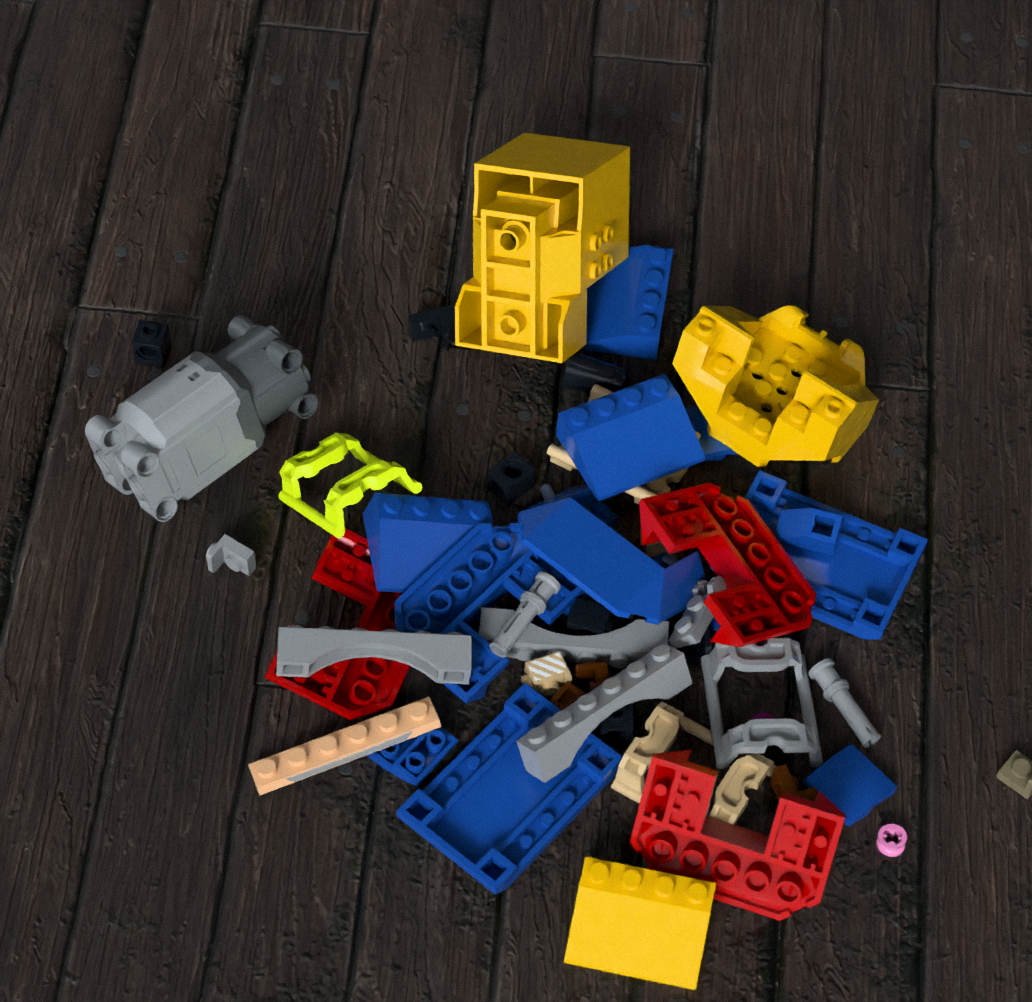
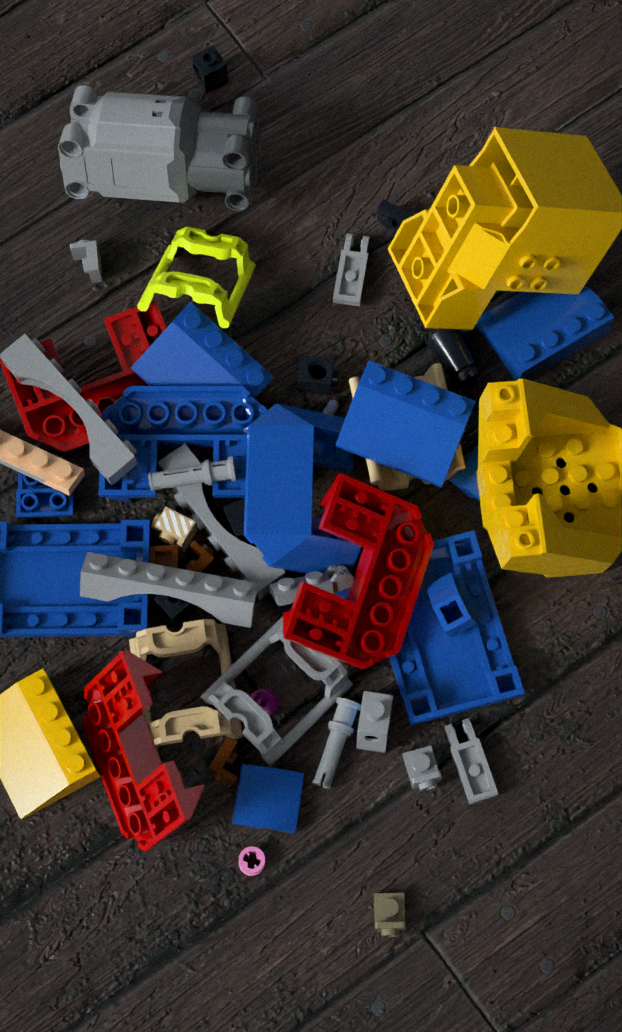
camera: 55 degrees right, 15 degrees up
(443, 388) = (351, 273): none -> light grey hinge
(855, 657) = (374, 721): none -> light grey torso
(922, 661) = (422, 768): none -> light grey bracket
(946, 623) = (471, 764): none -> light grey hinge

